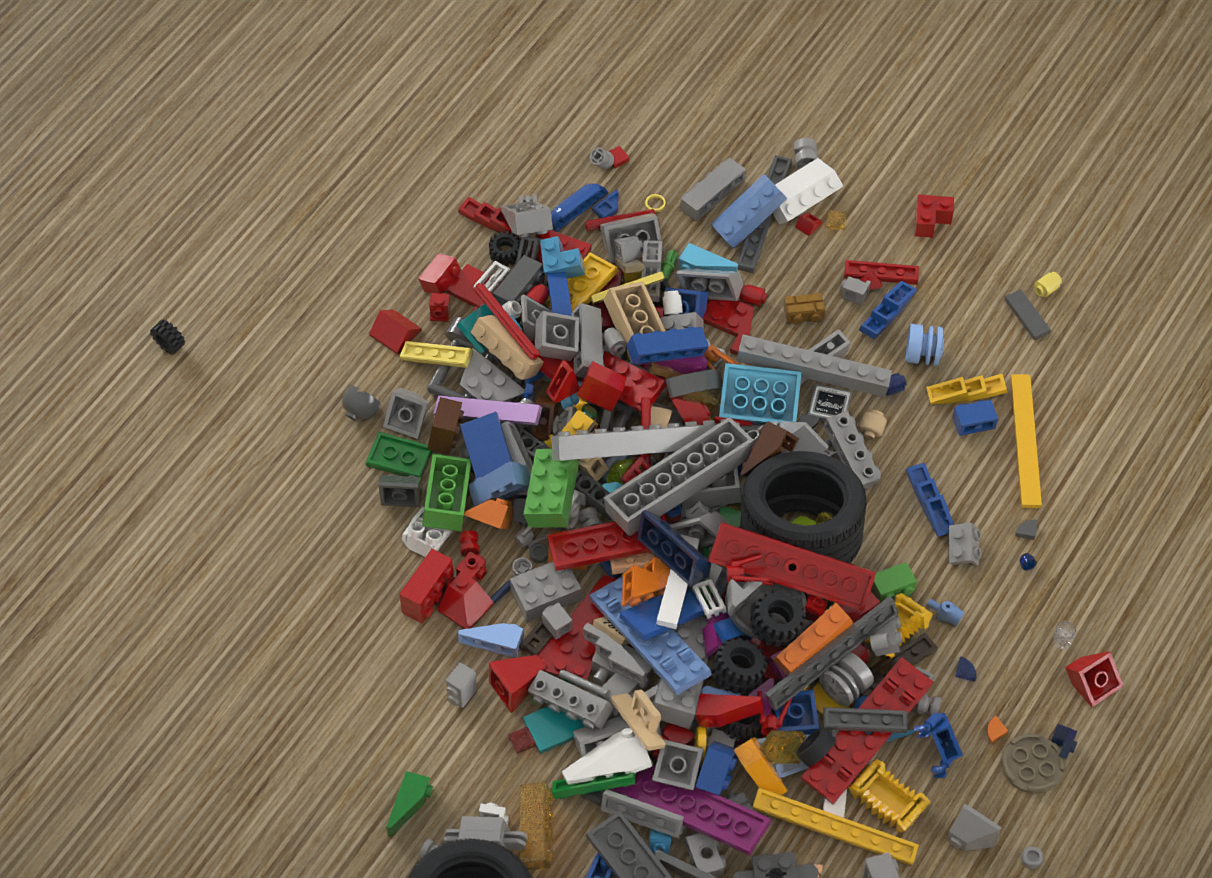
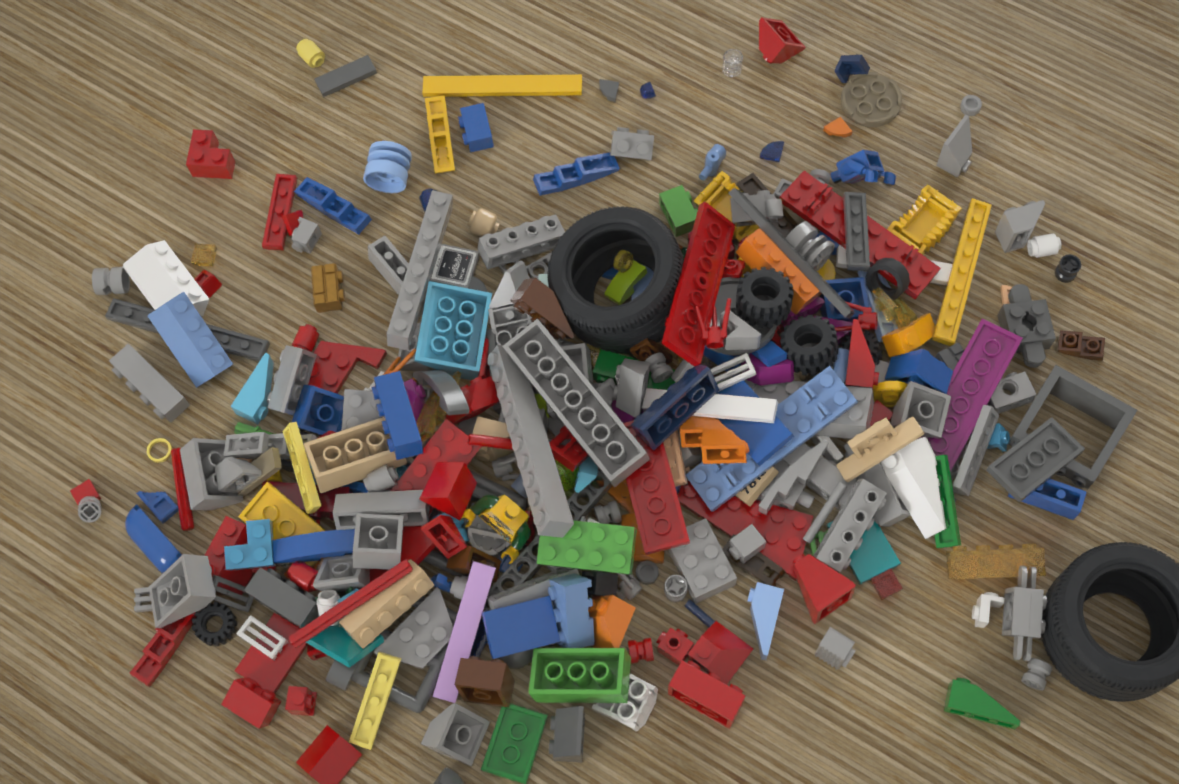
camera: 85 degrees left, 10 degrees up
(672, 303) = (323, 420): white brick -> none

